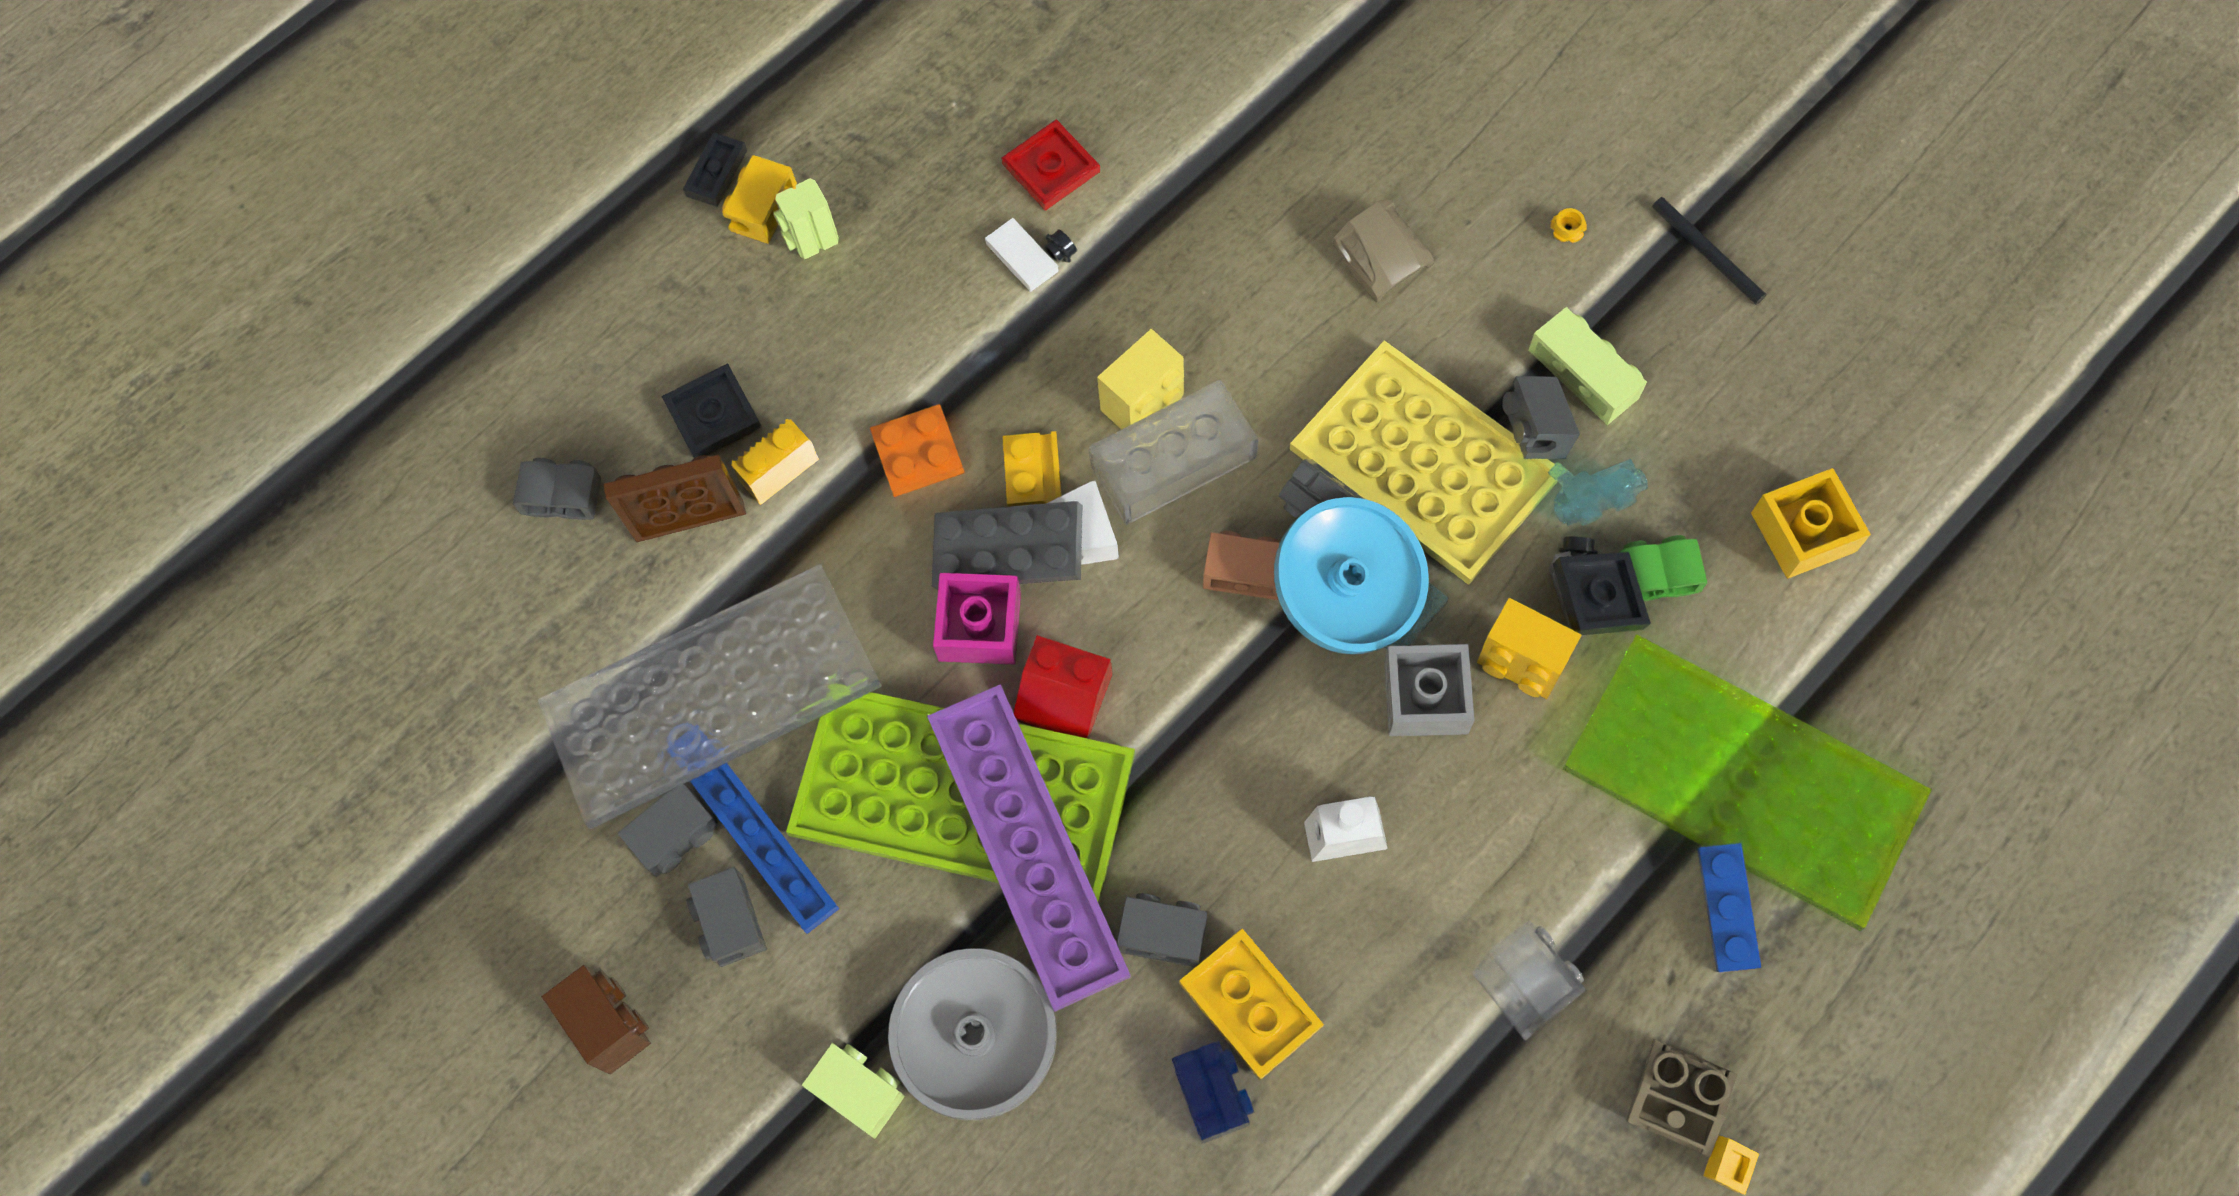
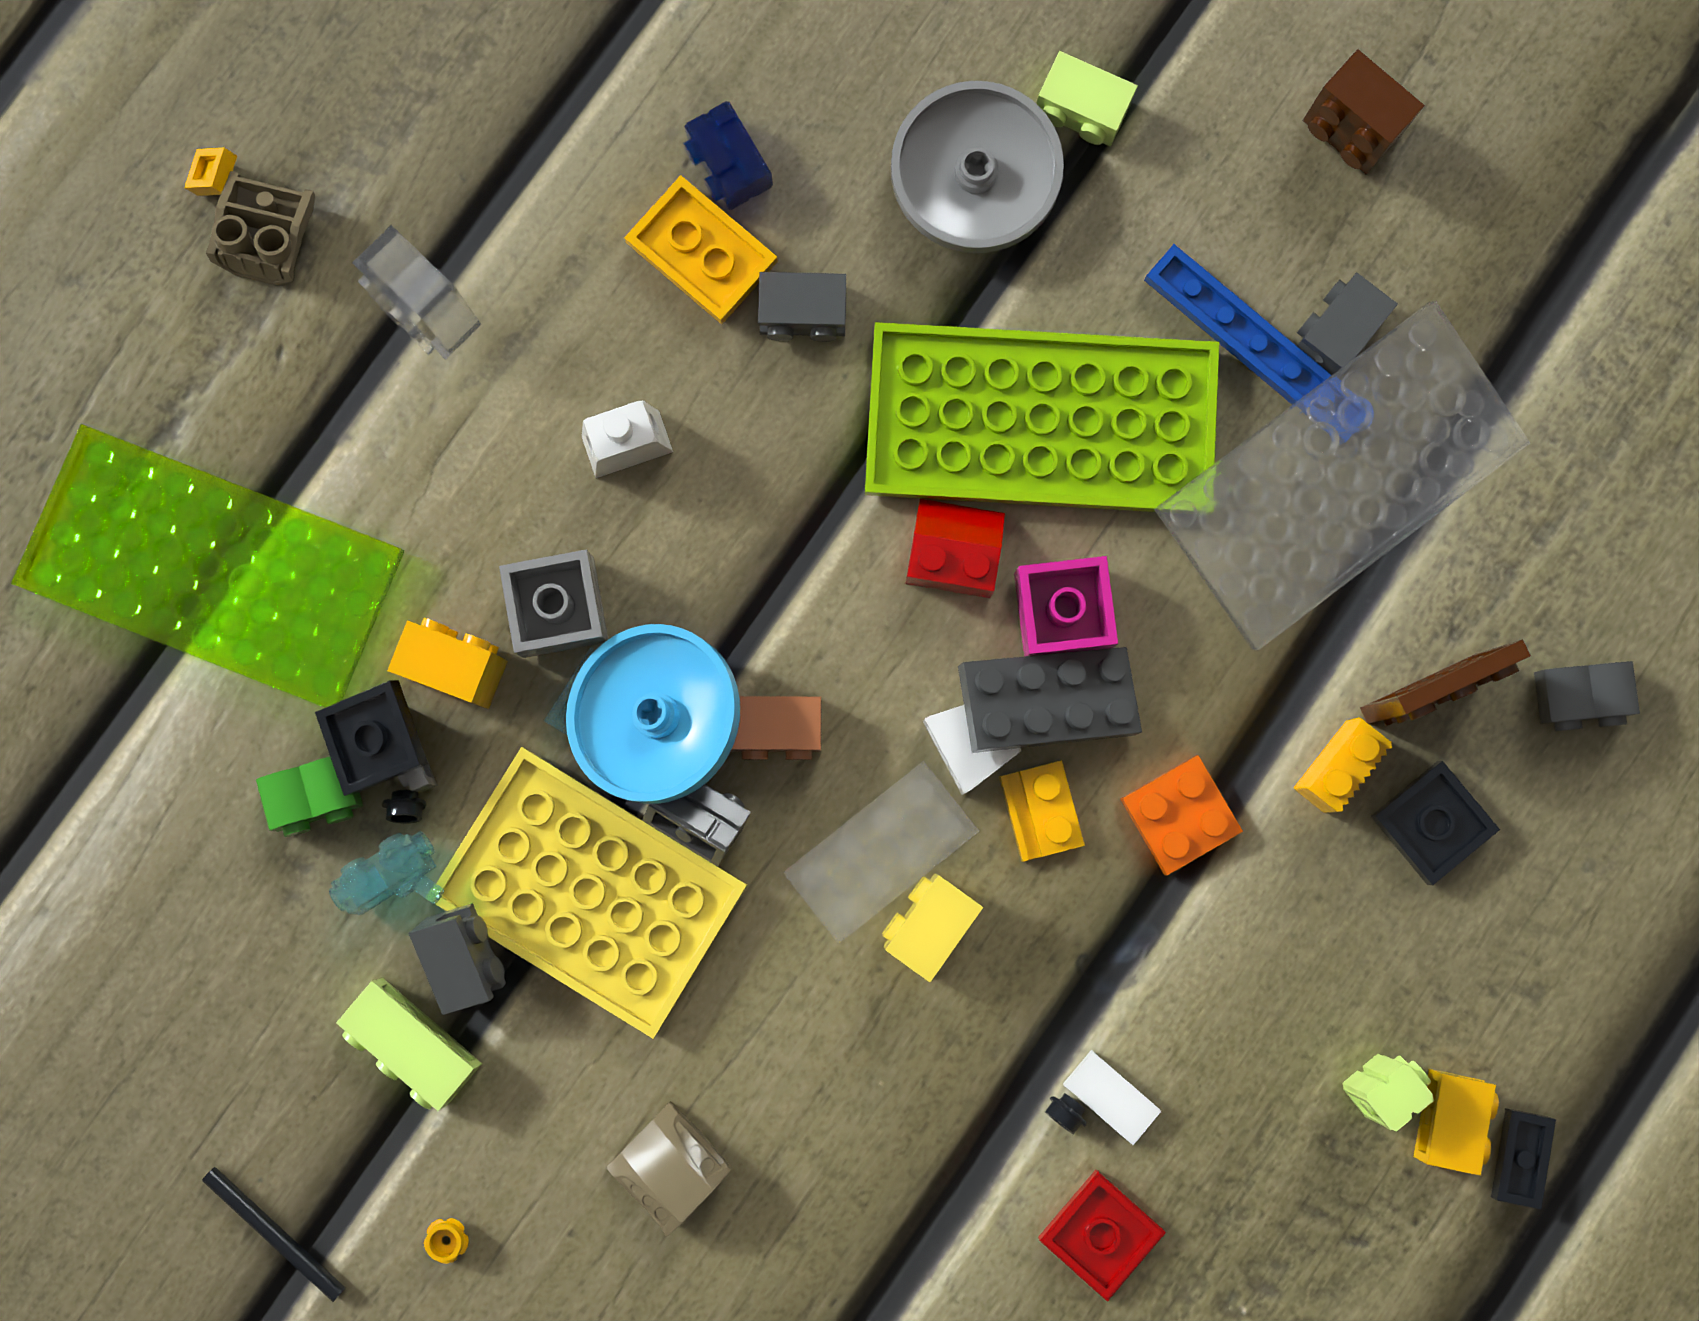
camera: 165 degrees right, 15 degrees up
(725, 917) = (1258, 245): dark grey brick -> none
(1028, 848) = (960, 363): medium lavender plate -> none
(1729, 907) = (221, 424): blue plate -> none
(1810, 523) = (142, 872): yellow brick -> none

